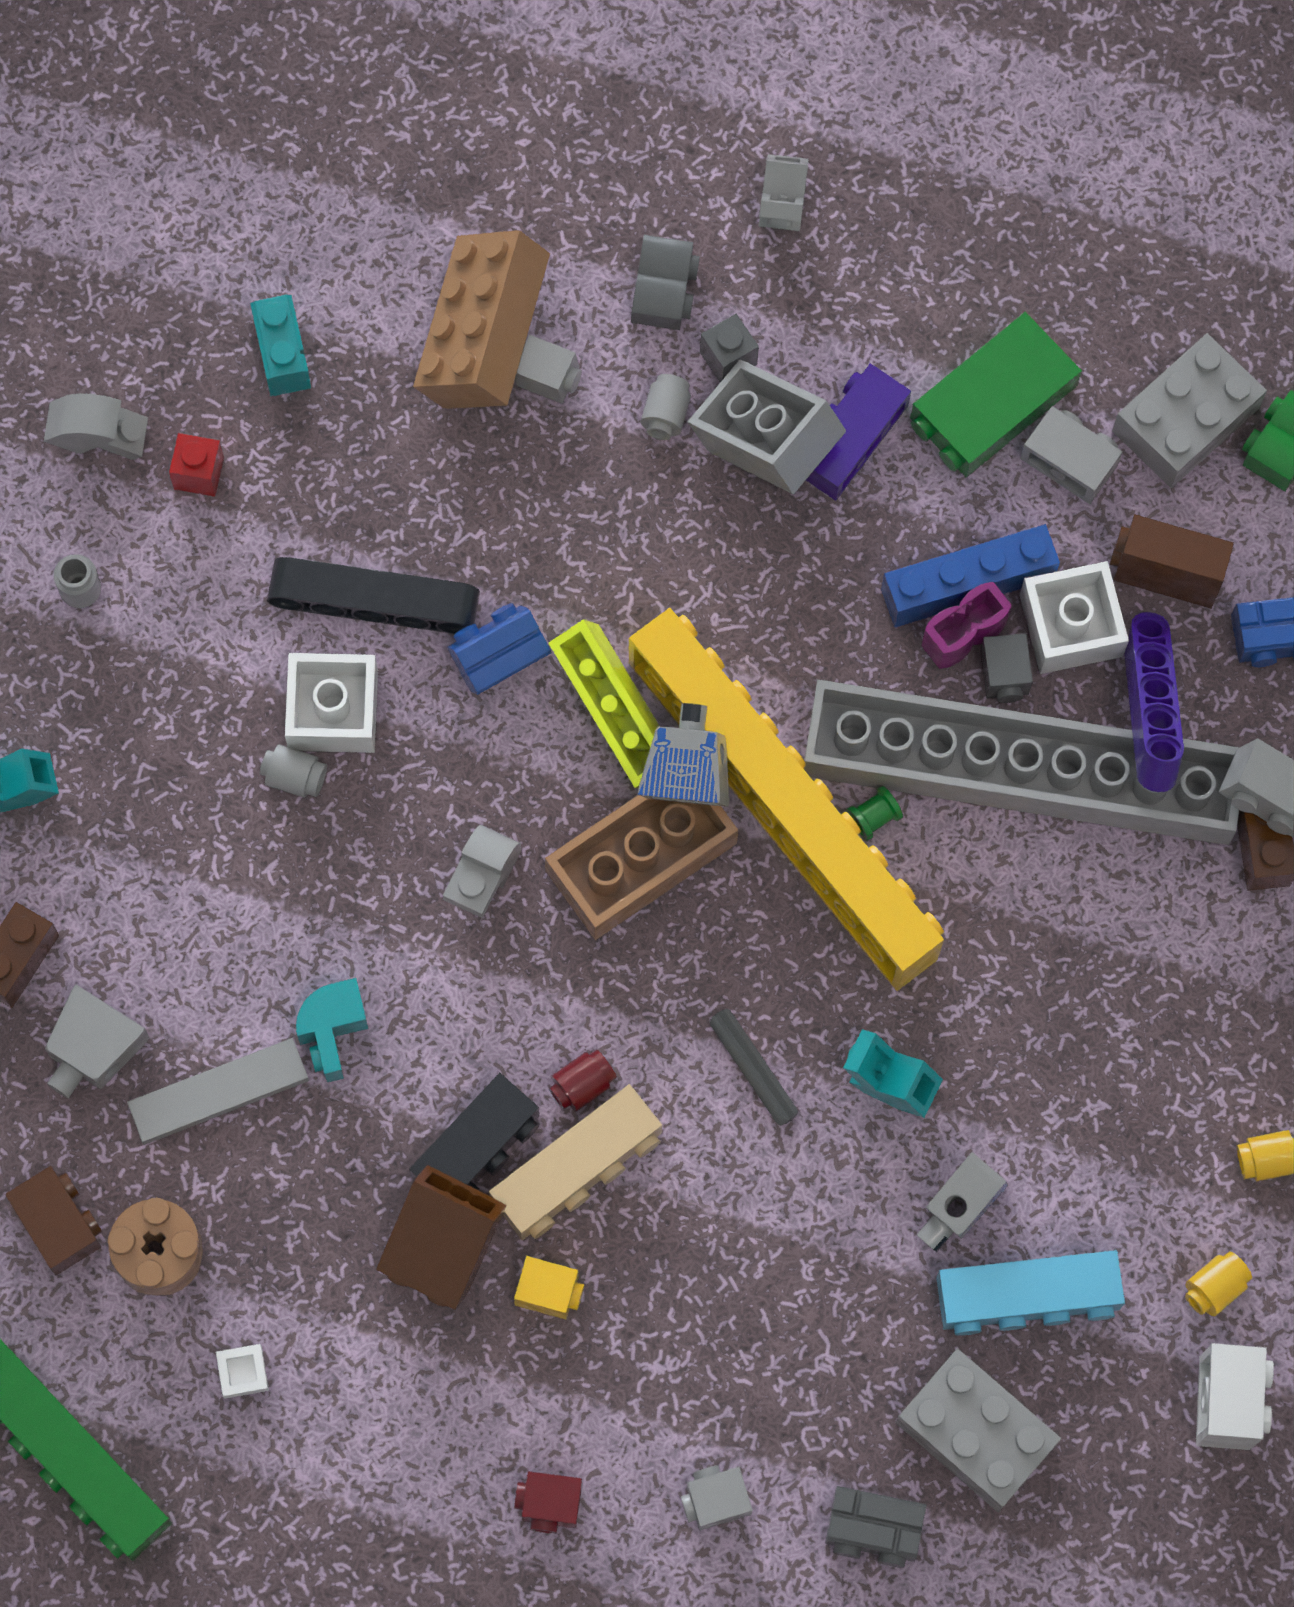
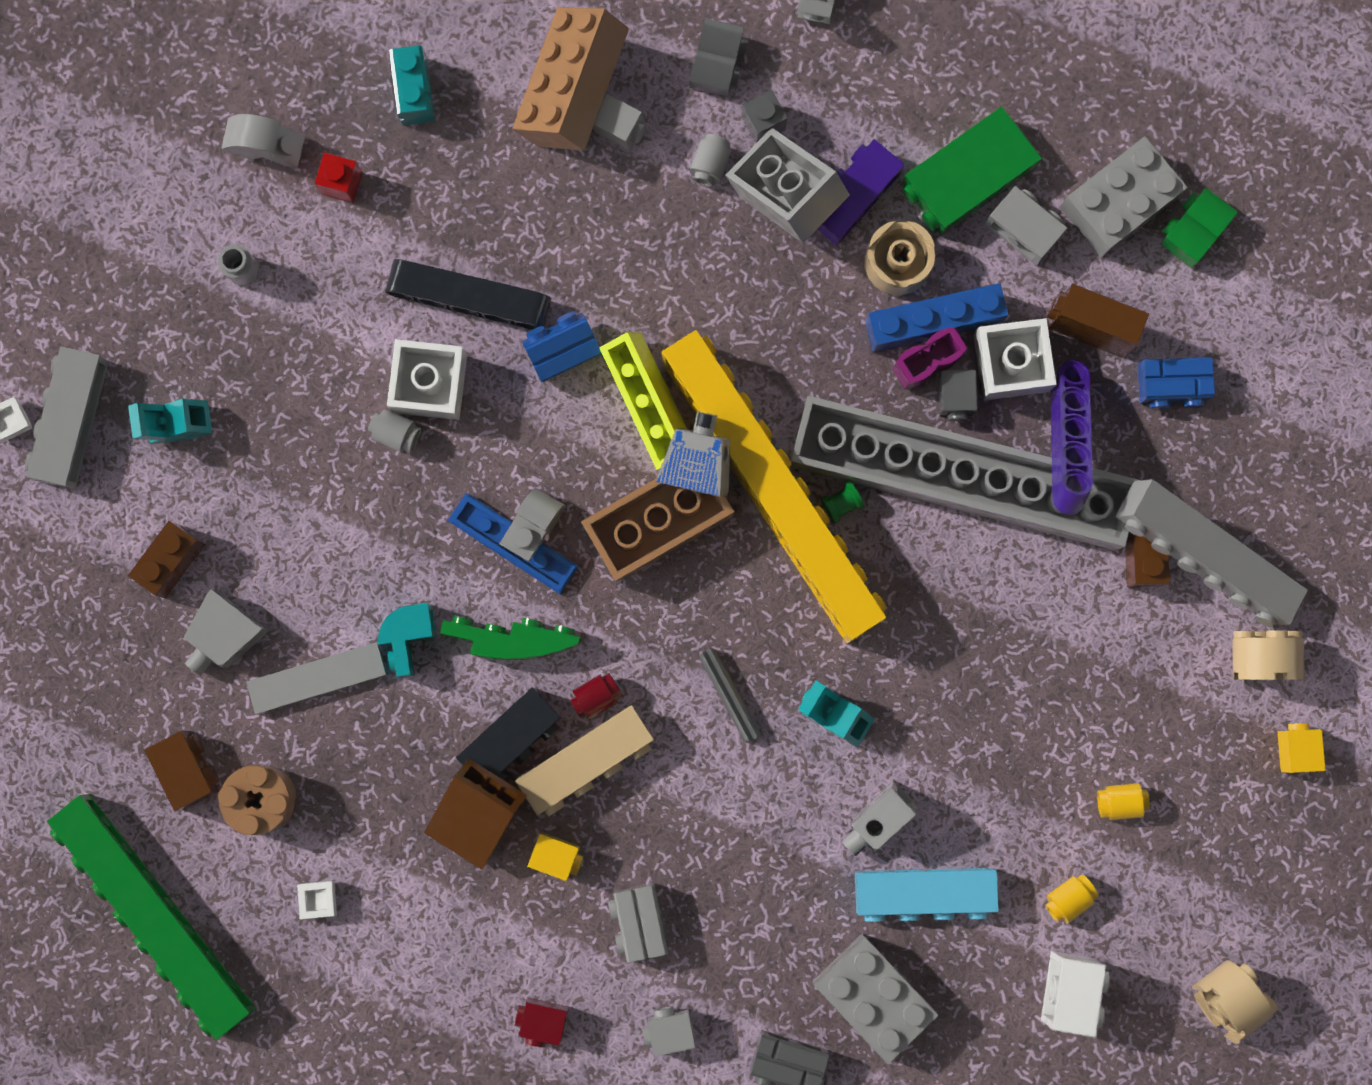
camera: 10 degrees right, 10 degrees up
(424, 886) = (489, 529): none -> blue tile
(484, 1022) = (525, 640): none -> green slope
(664, 1361) = (639, 923): none -> light grey brick
(907, 485) = (897, 240): none -> tan brick

